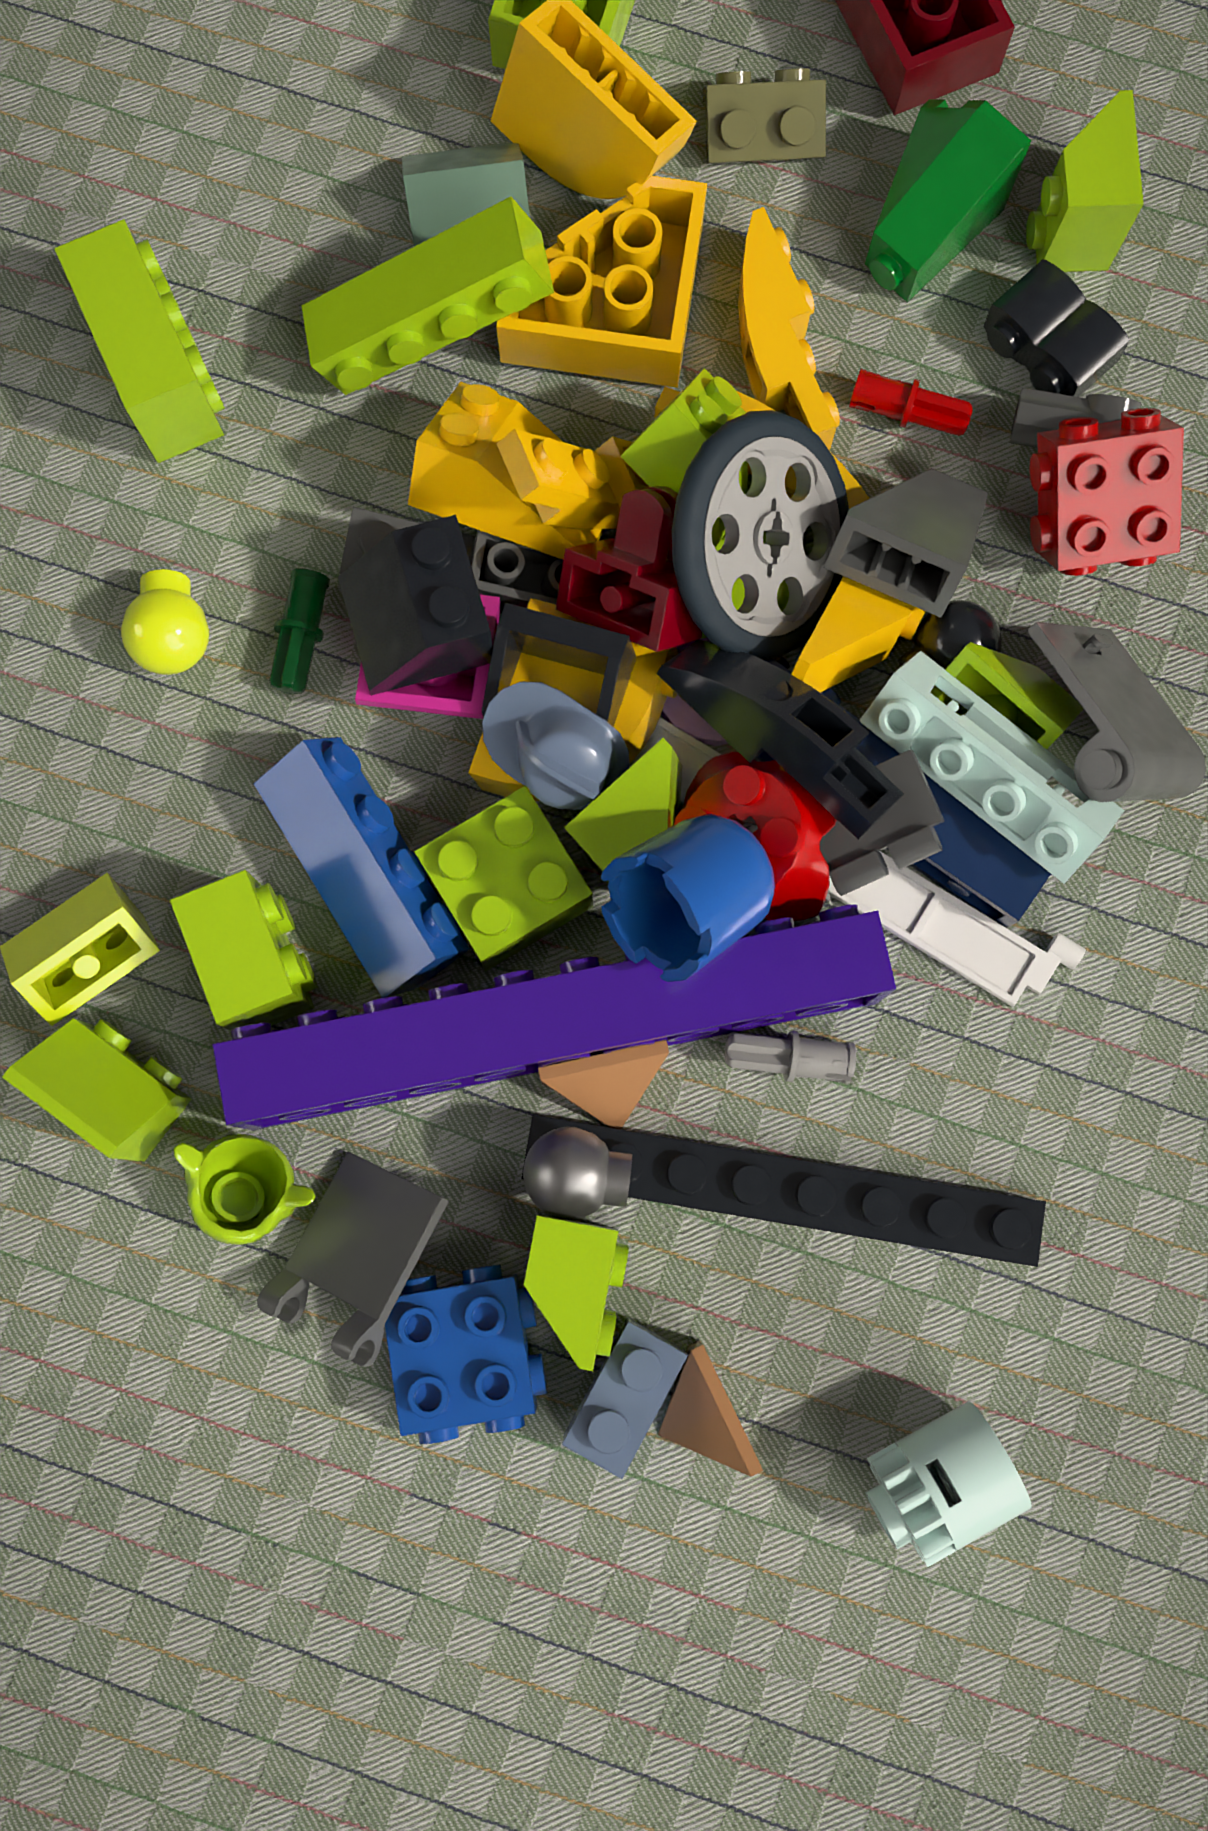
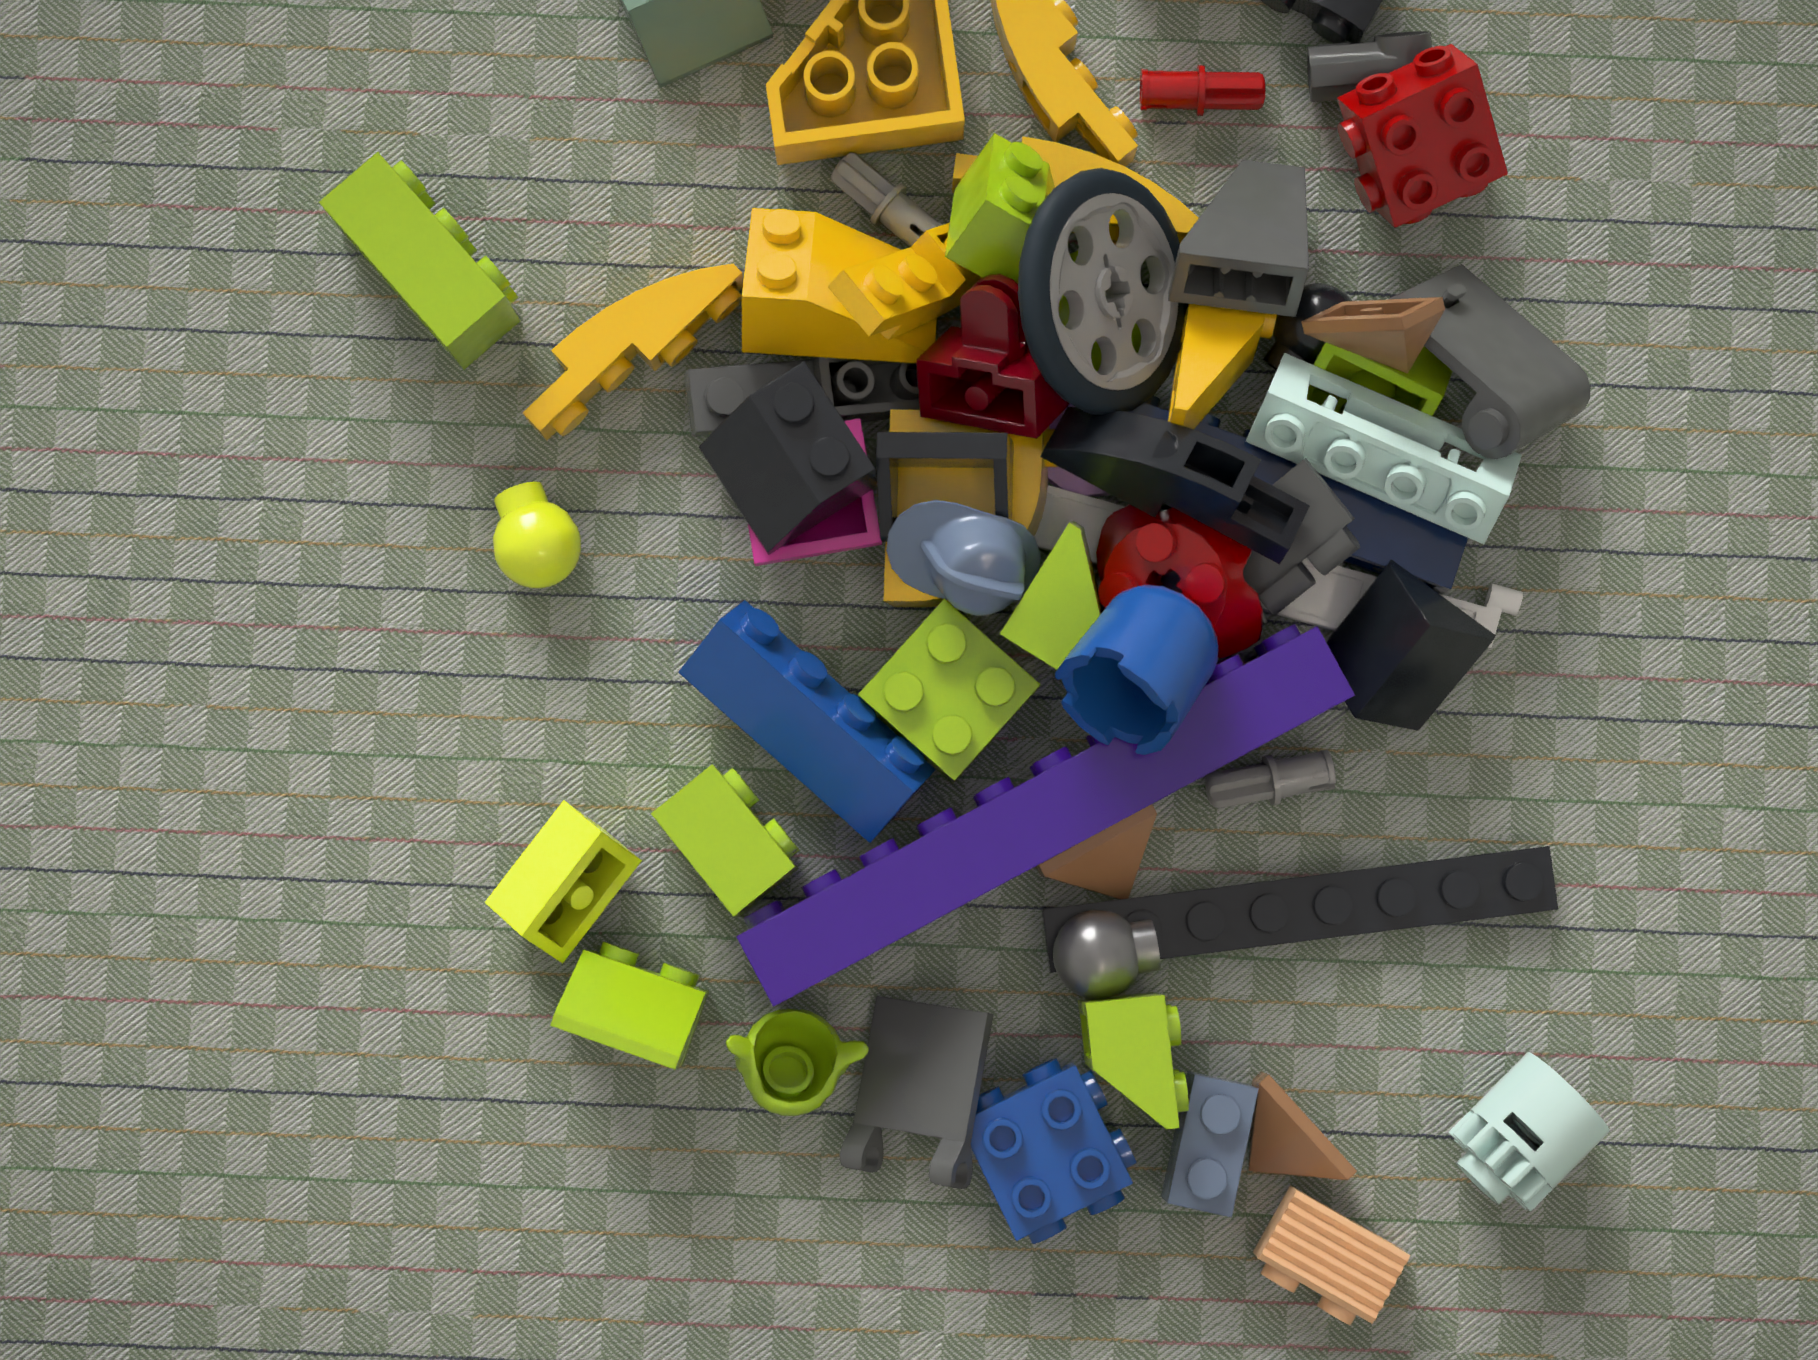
camera: 20 degrees left, 5 degrees up
(282, 474) = (651, 323): none -> yellow slope
(298, 631) = (666, 504): dark green axle -> none
(427, 297) = (696, 137): lime brick -> none
(587, 418) = (882, 199): none -> light grey axle
(712, 1549) = (1329, 1255): none -> light nougat brick
(958, 967) = (1404, 649): none -> black slope
(1022, 651) = (1379, 329): none -> medium nougat slope

